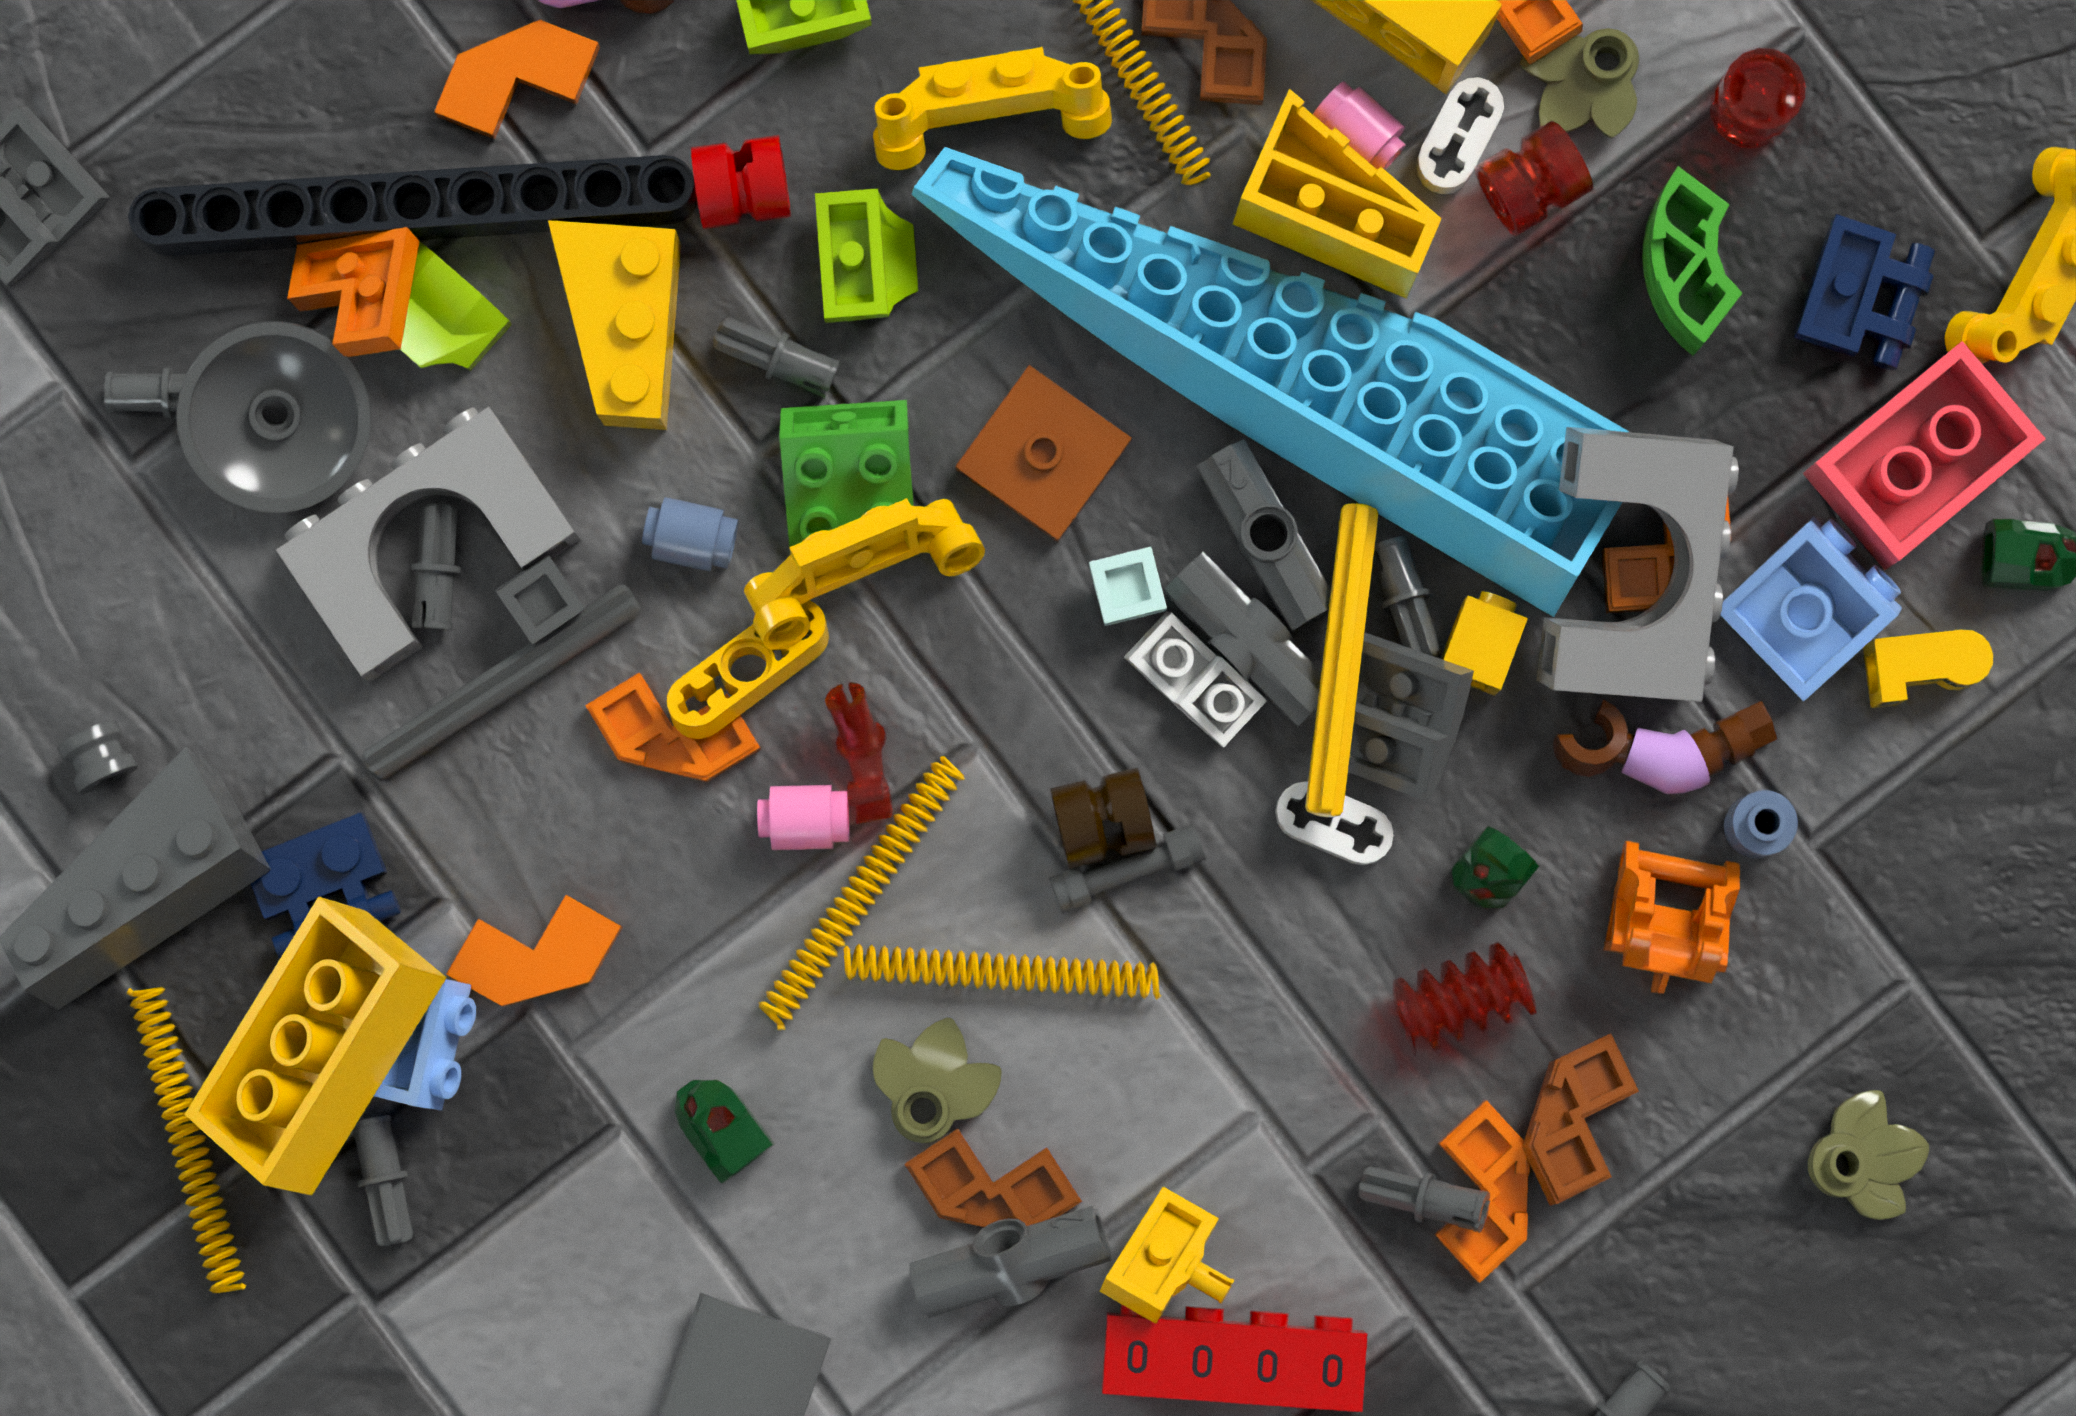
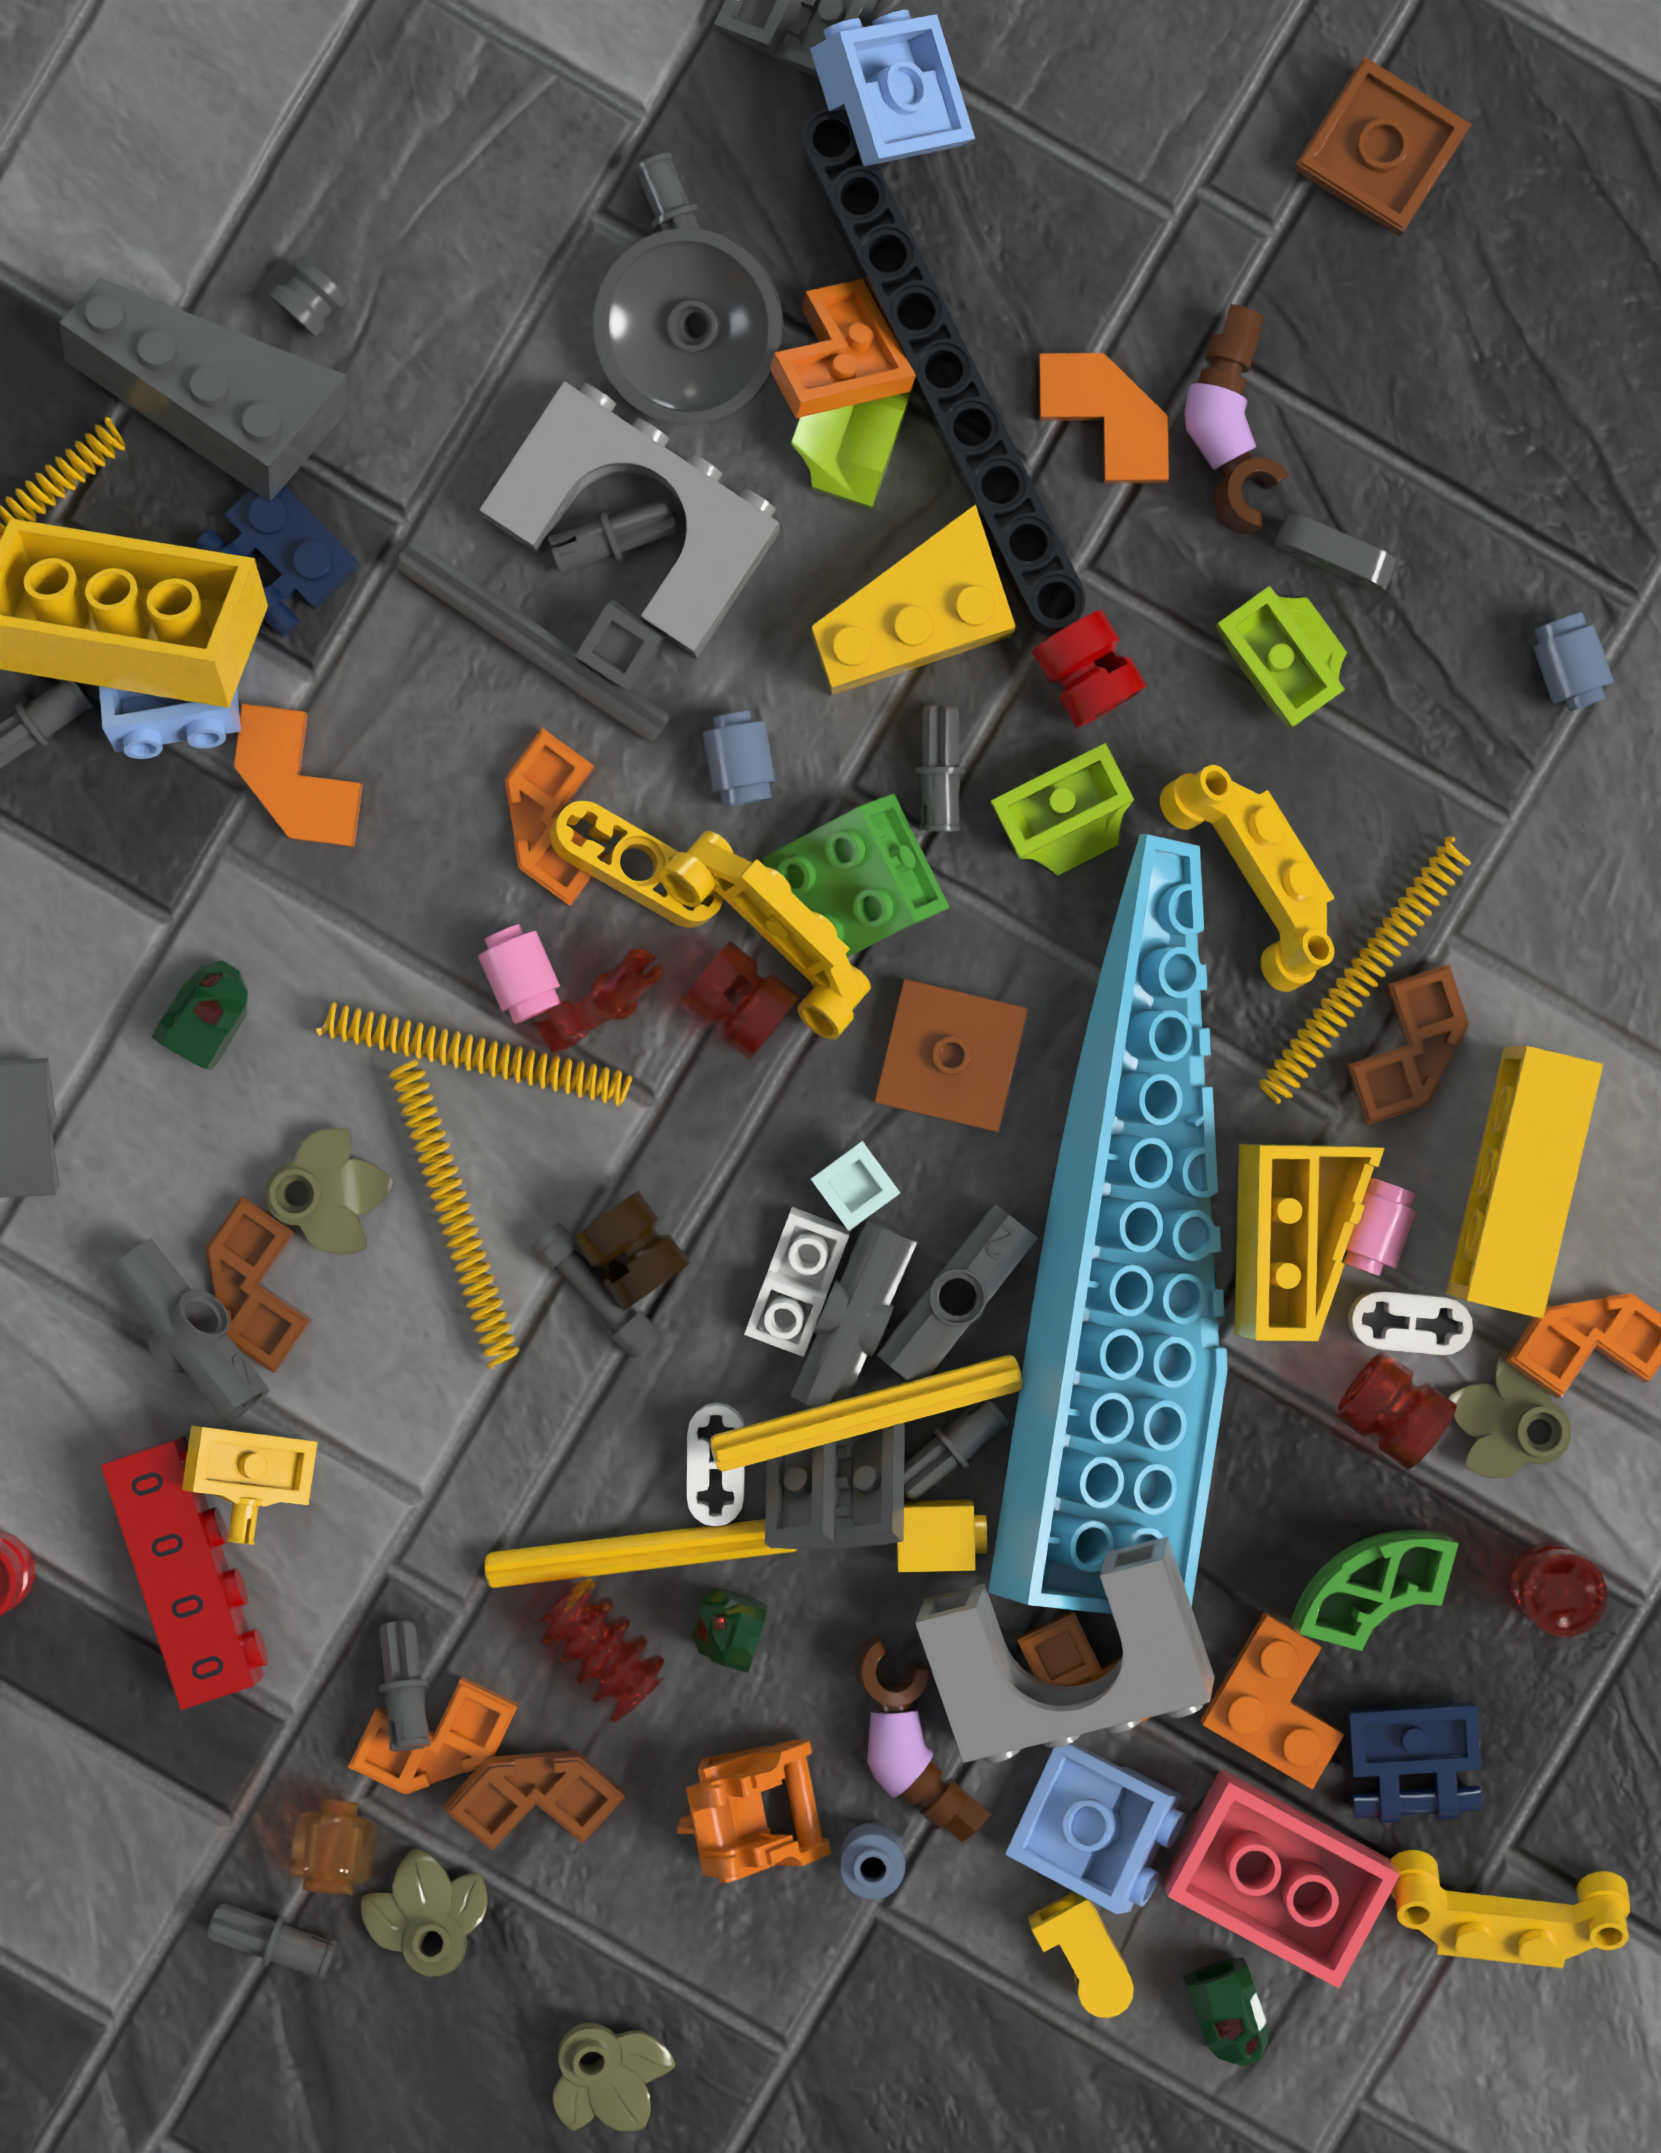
camera: 65 degrees right, 5 degrees up
(134, 140) = (893, 86): none -> light blue plate
(934, 612) = (757, 1015): none -> clear red wheel
(1385, 935) = (628, 1554): none -> yellow axle
(1550, 1326) = (333, 1848): none -> clear orange head
(1637, 1262) = (426, 1903): none -> olive plate
(1759, 416) = (1257, 1709): none -> orange plate

